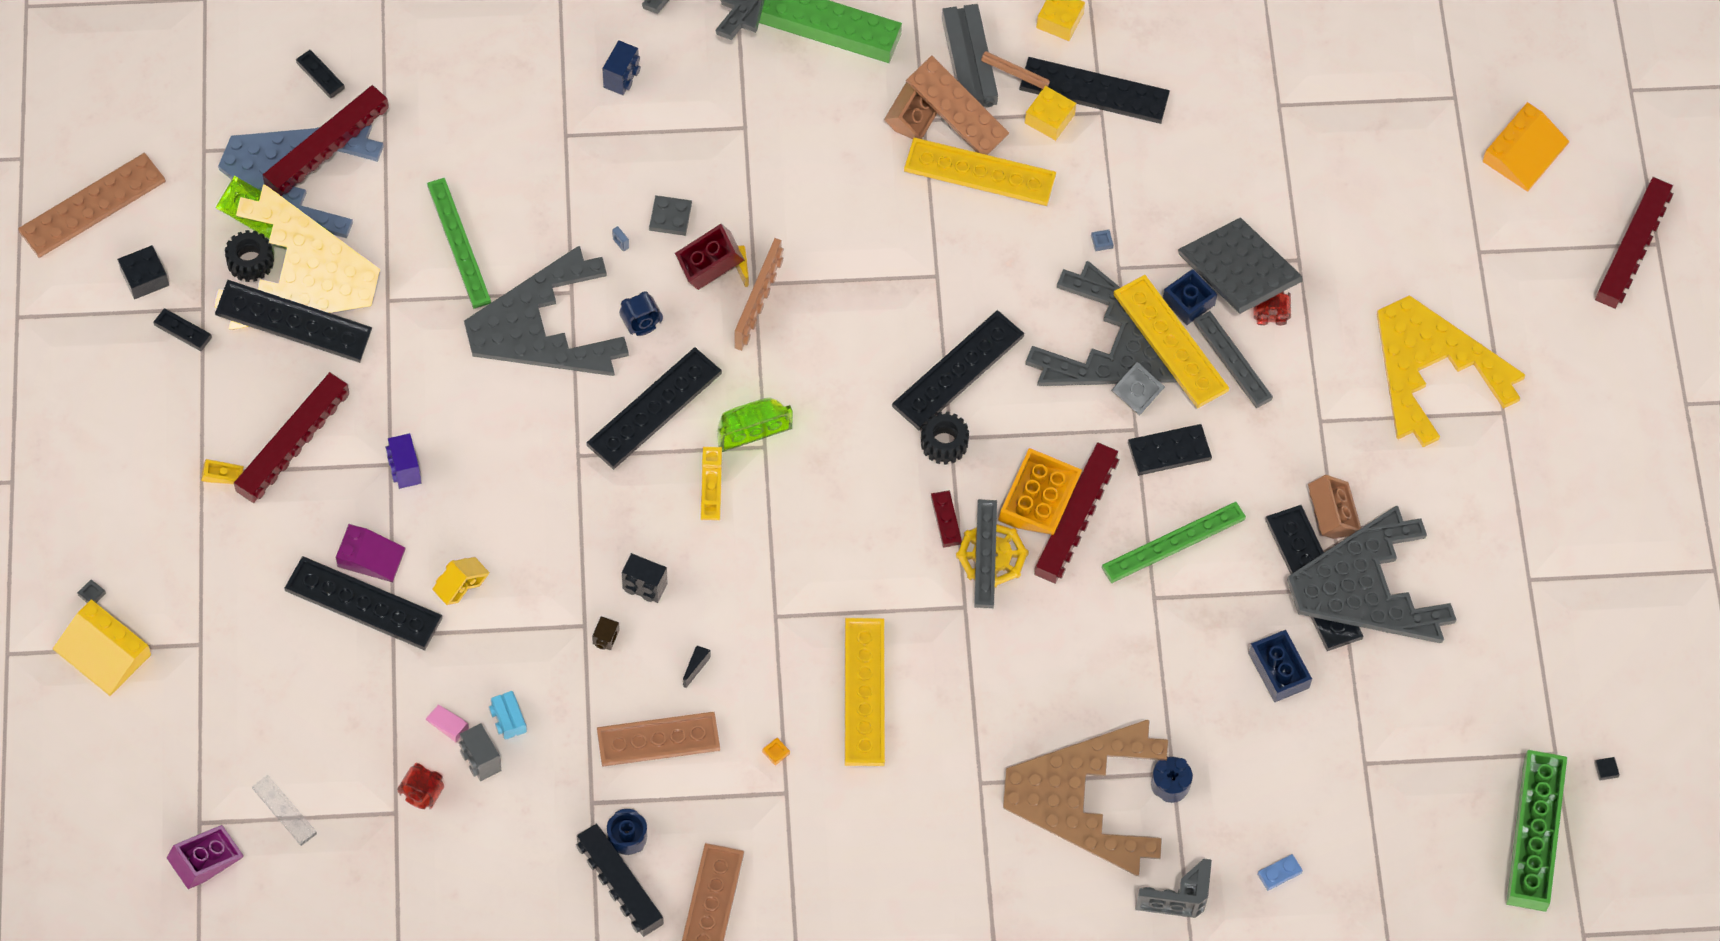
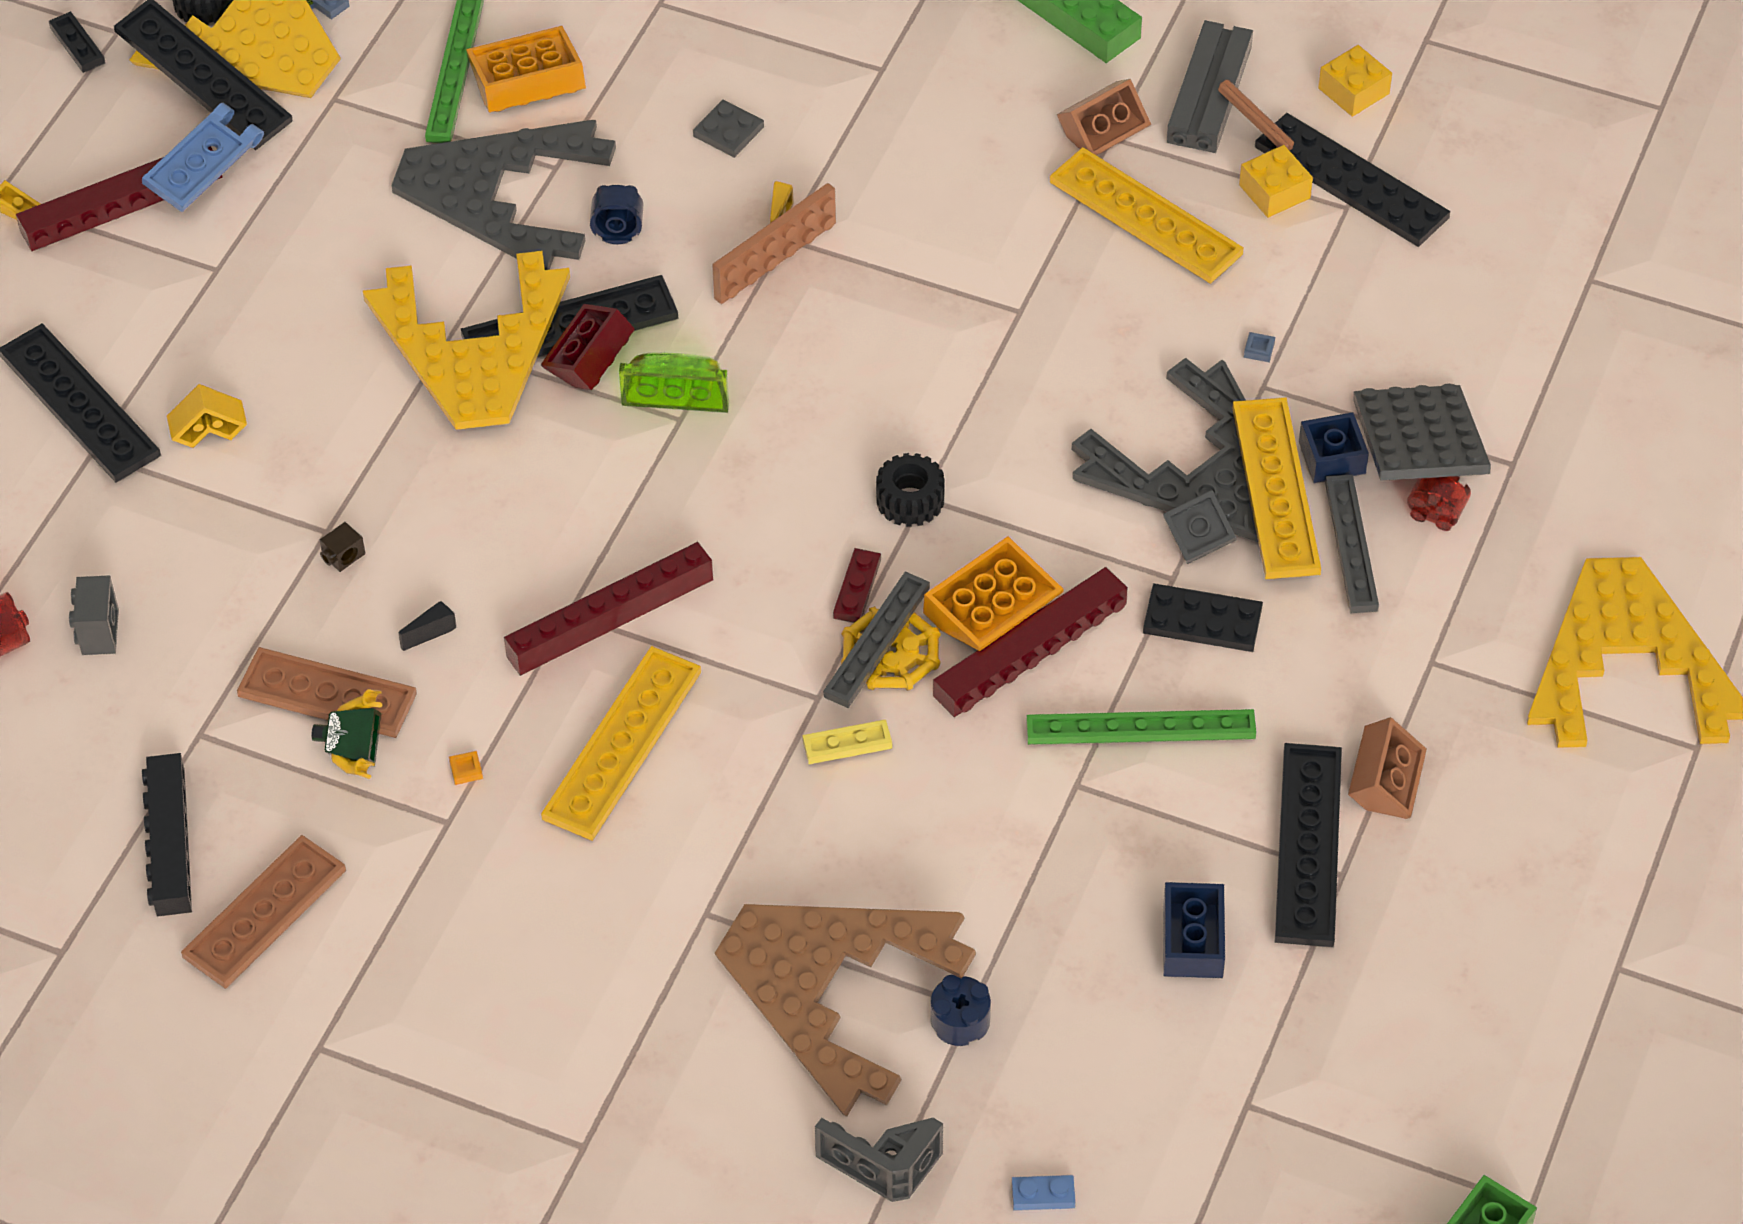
camera: 30 degrees right, 10 degrees down
(336, 397) = (192, 167): none -> medium blue hinge
(369, 553) = (121, 350): magenta slope -> none
(403, 461) = (227, 264): dark purple brick -> none
(447, 723) = (83, 564): bright pink slope -> none
(508, 715) = (161, 591): medium azure brick -> none
(511, 225) = (526, 69): none -> light orange slope
(618, 473) = (473, 378): none -> yellow wing
(620, 238) = (649, 129): sand blue tile -> none
(630, 821) = (212, 780): dark blue brick -> none
(644, 578) = (426, 500): black brick -> none
(680, 421) = (588, 346): none -> dark red slope
(697, 763) = (352, 734): none -> torso
(709, 256) = (739, 180): dark red brick -> none
(711, 483) = (586, 431): yellow slope -> none
(803, 603) = (608, 608): none -> dark red brick
(957, 106) = (1156, 129): nougat plate -> none
(958, 369) = (982, 420): black plate -> none
(1002, 630) = (847, 741): none -> light yellow plate
(1351, 587) = (1354, 875): dark grey wing -> none

